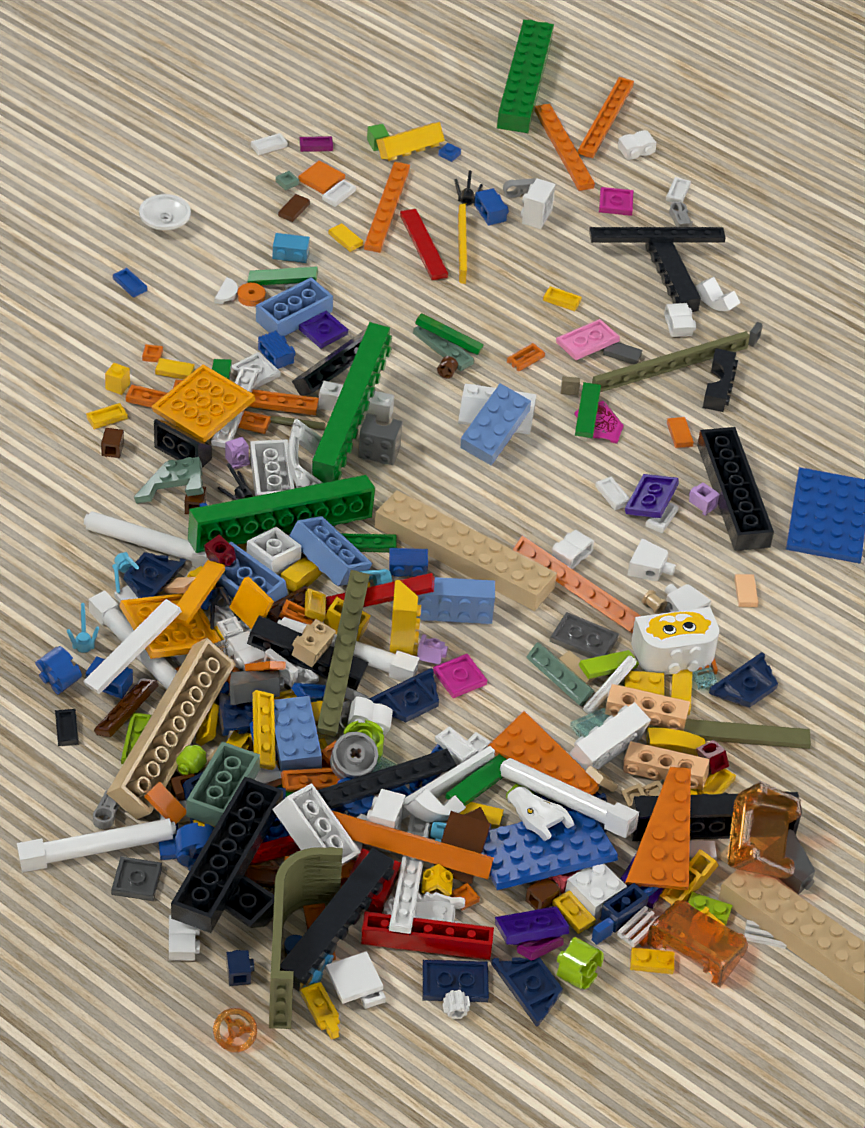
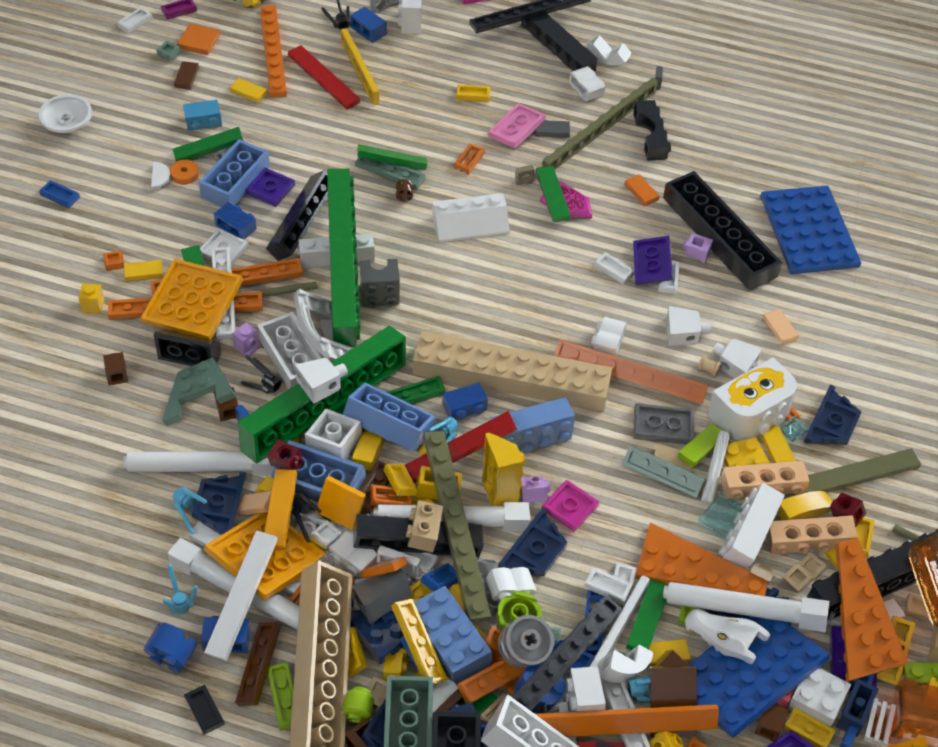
camera: 20 degrees left, 5 degrees up
(106, 415) = (96, 341): yellow tile -> none
(277, 495) = (319, 378): none -> white torso
(338, 193) = (221, 49): white tile -> none
(495, 424) = (481, 234): medium blue brick -> none

